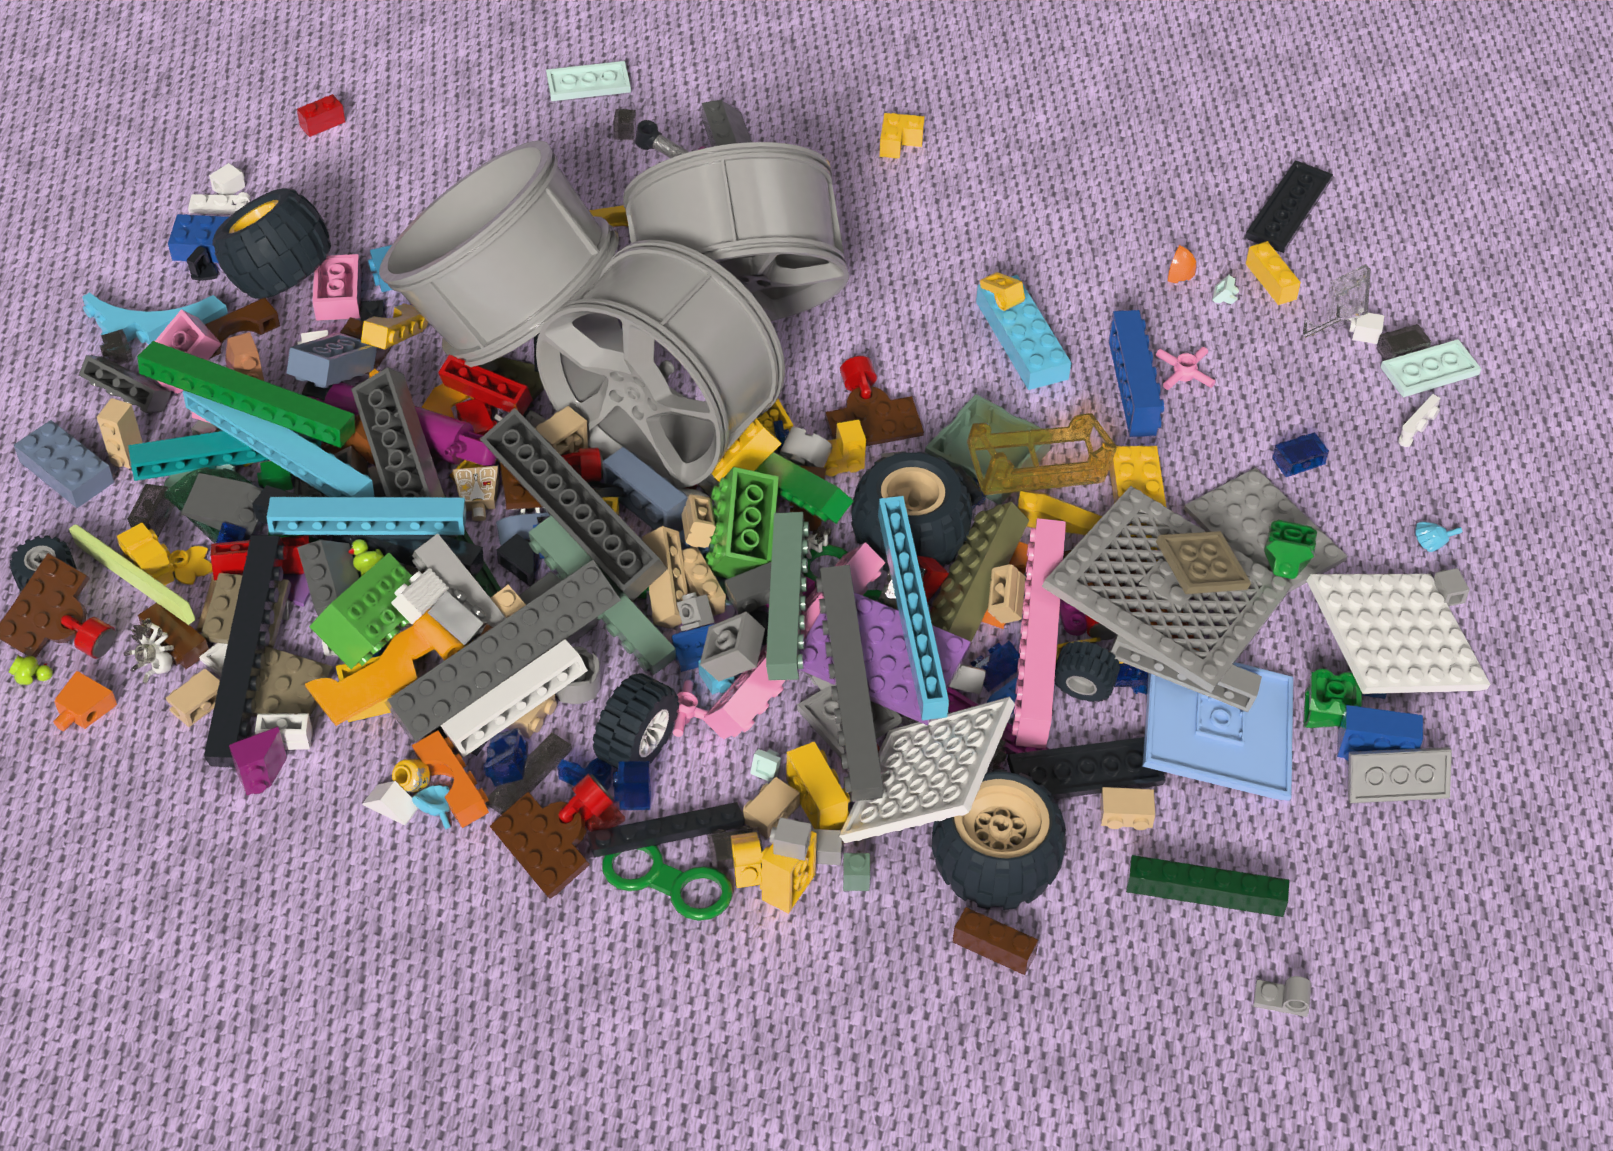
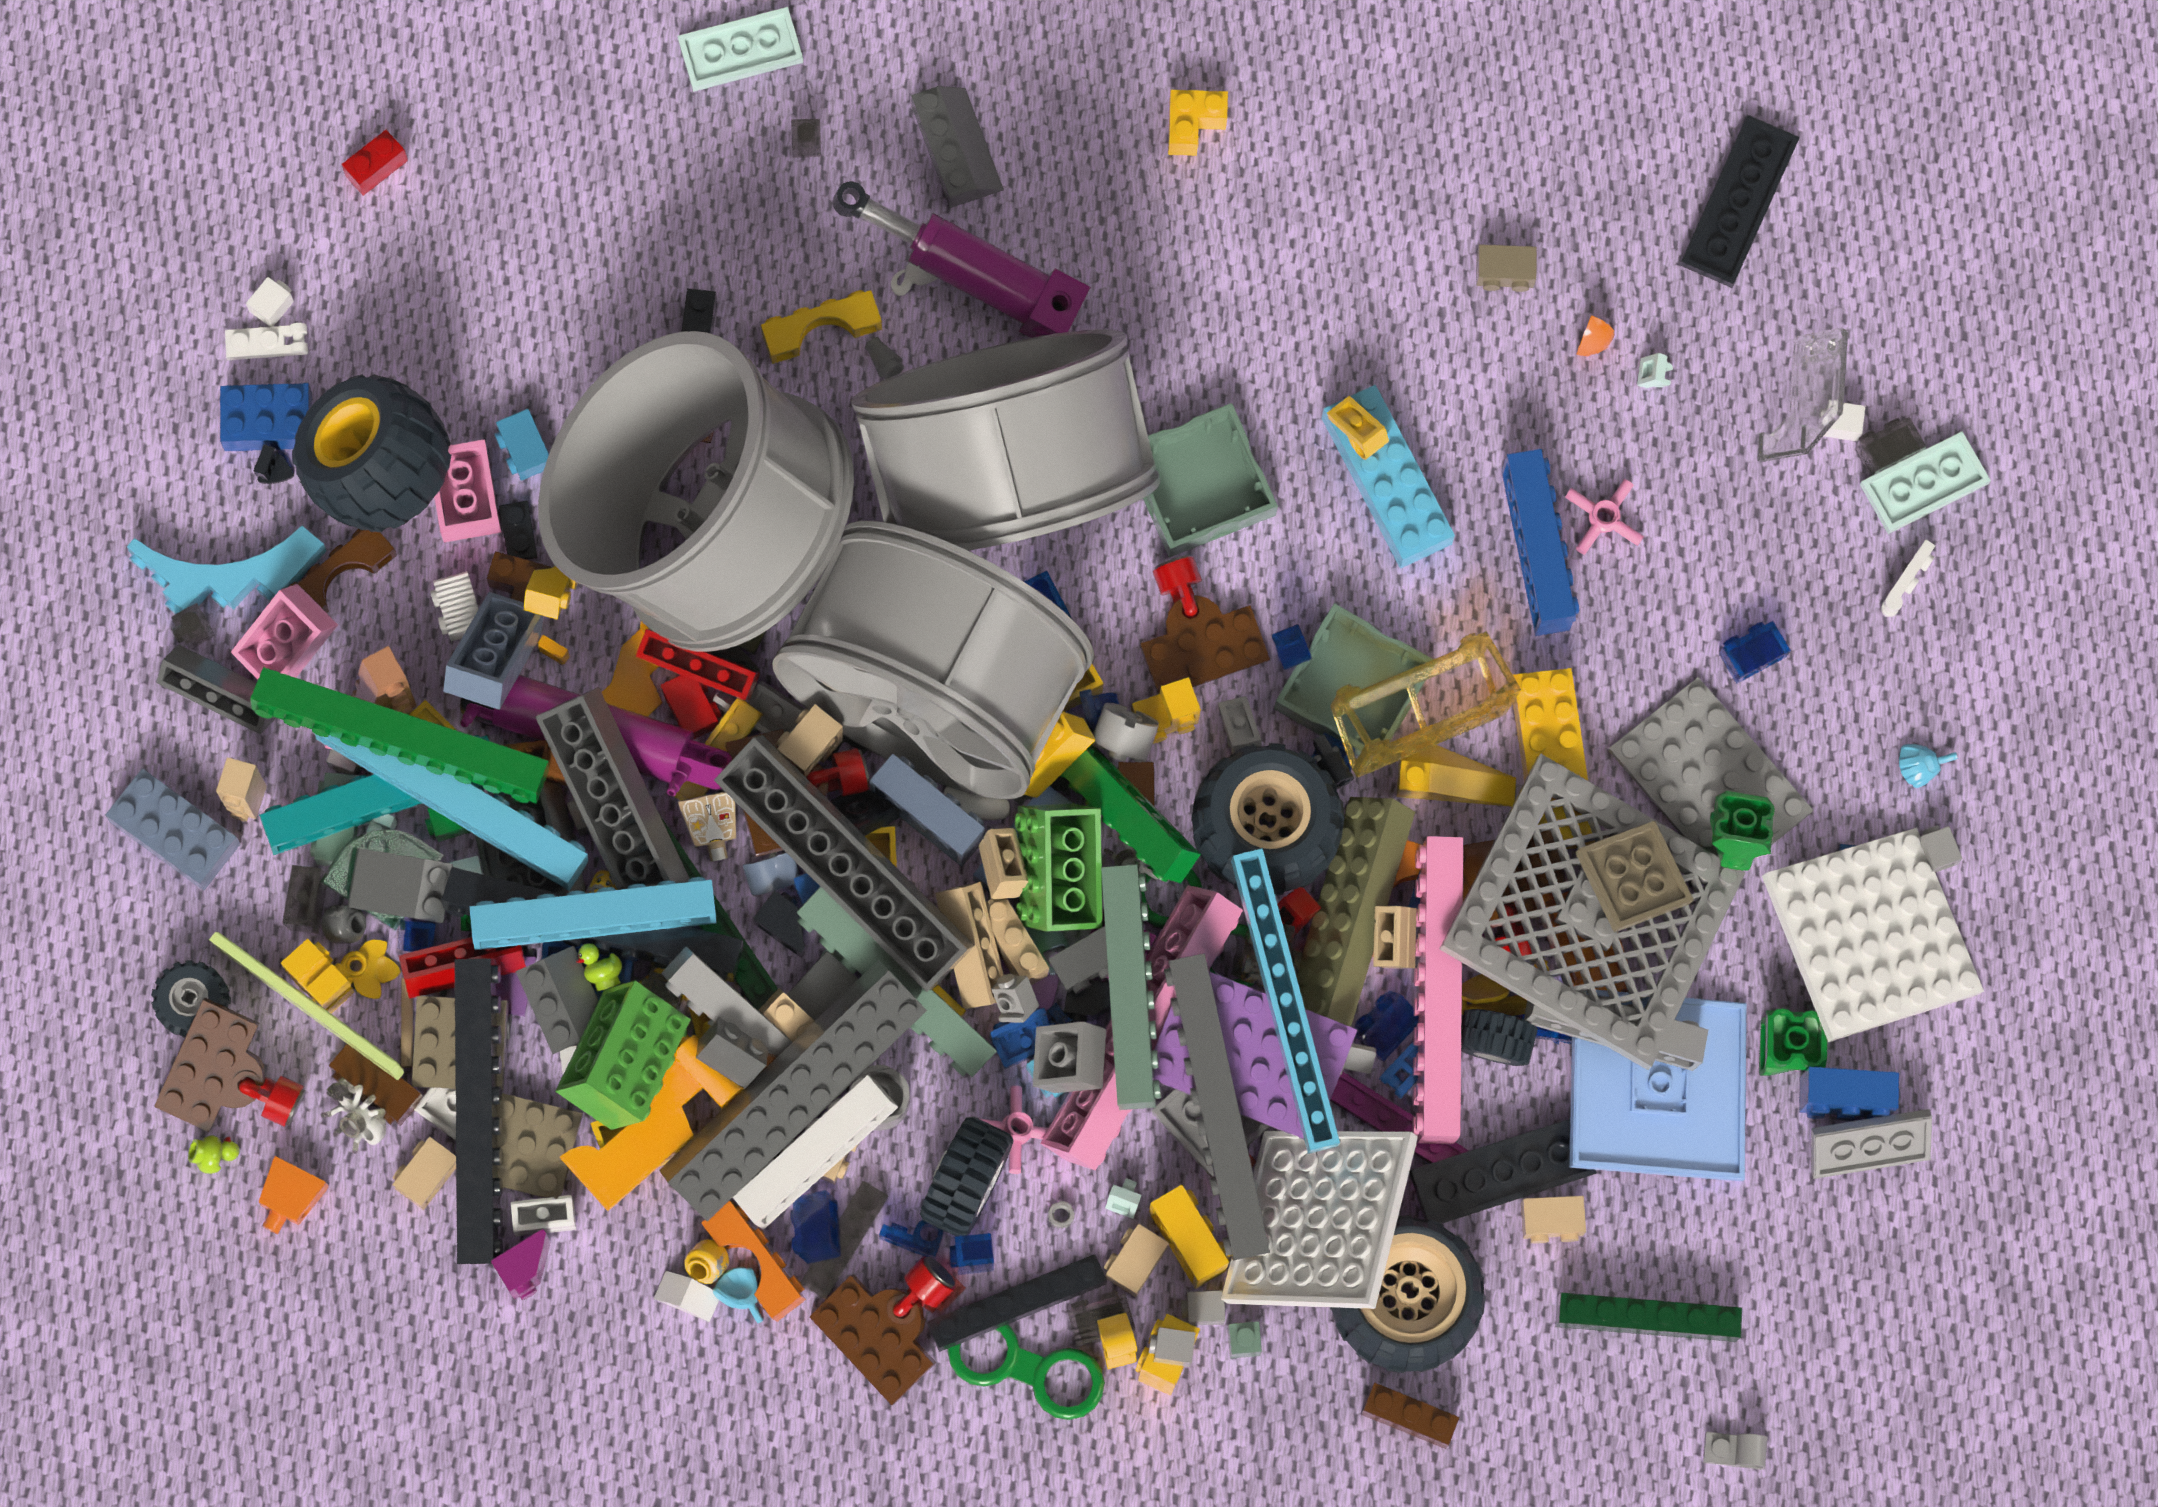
camera: 10 degrees left, 25 degrees up
(176, 530) = (343, 924): none -> dark grey head
(420, 596) = (683, 1038): white brick -> none
(715, 779) = (1063, 1205): none -> light grey axle
(883, 322) = (1206, 482): none -> sand green tile
(939, 414) = (1291, 647): none -> clear blue plate
(1118, 226) = (1506, 267): none -> dark tan brick
(1273, 273) = (1717, 335): yellow brick -> none

